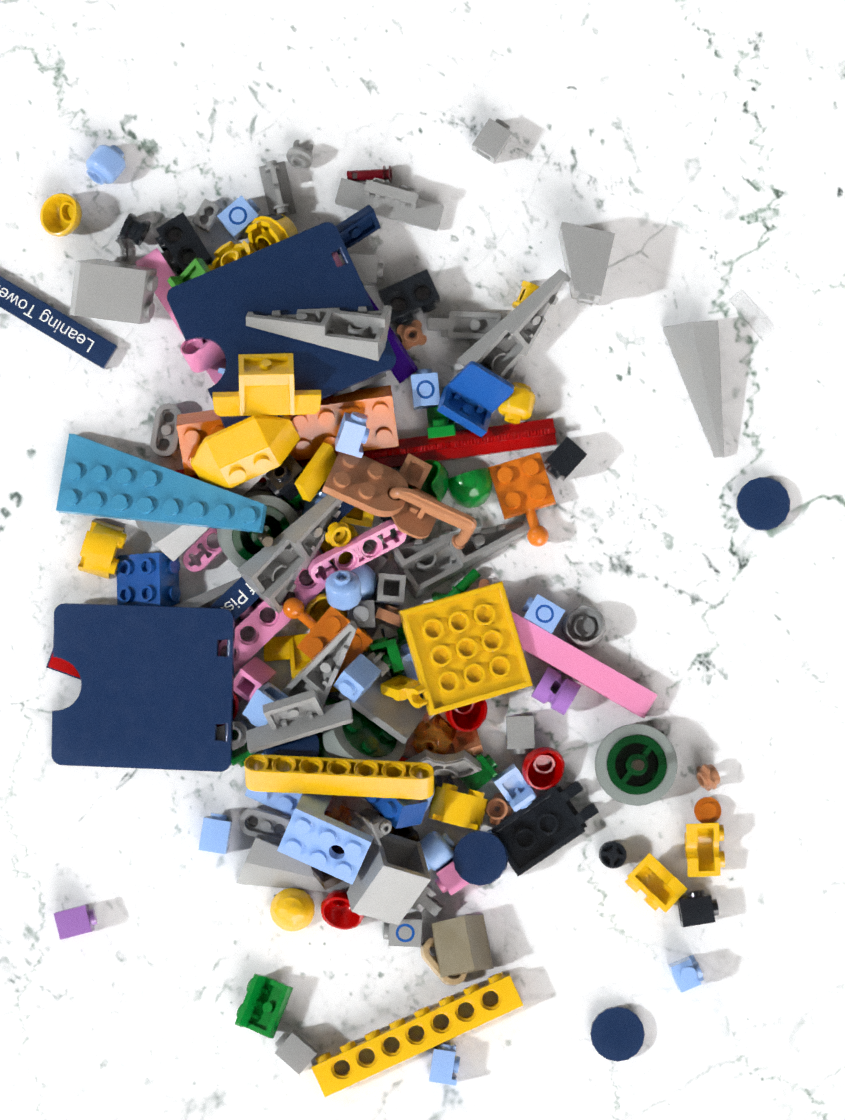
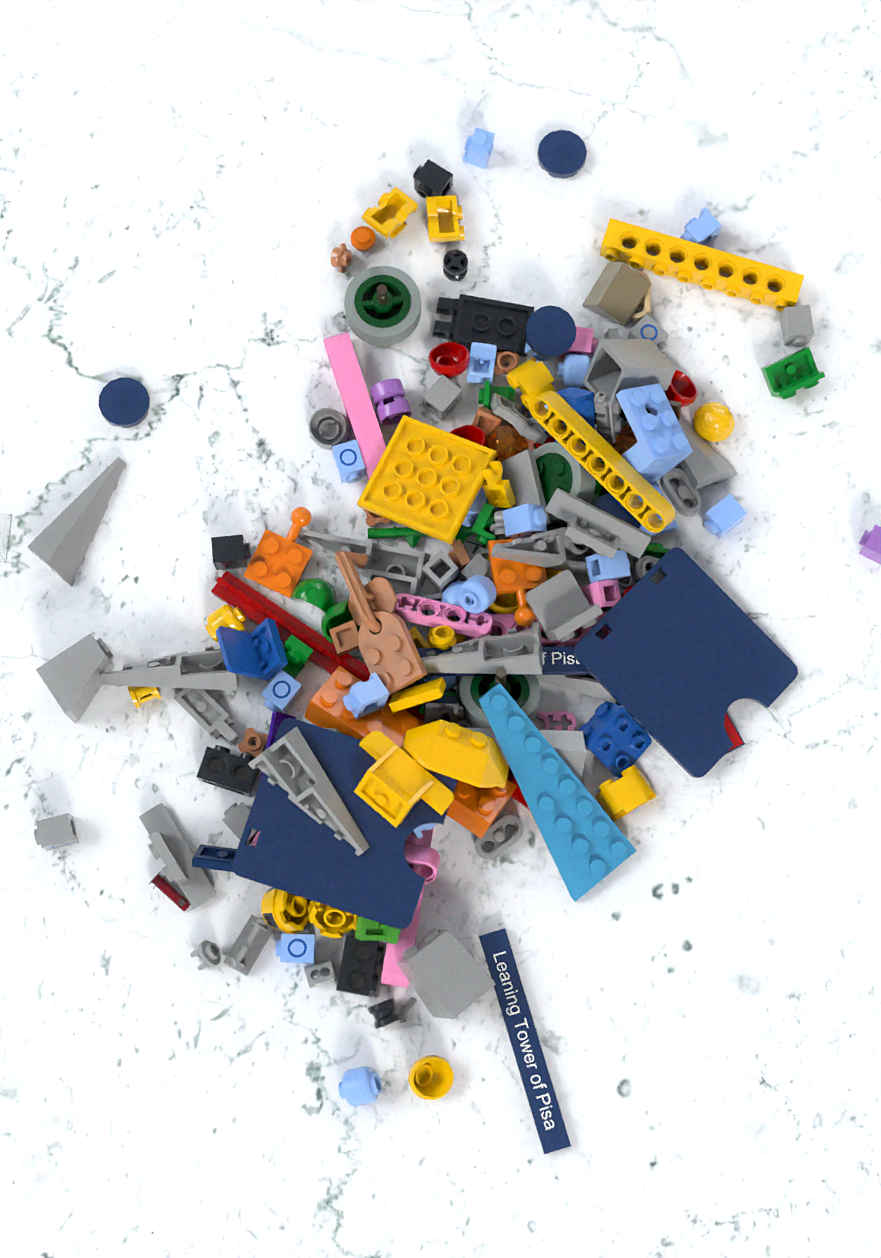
camera: 140 degrees left, 10 degrees down
(269, 638) = (561, 607): none -> light grey bracket

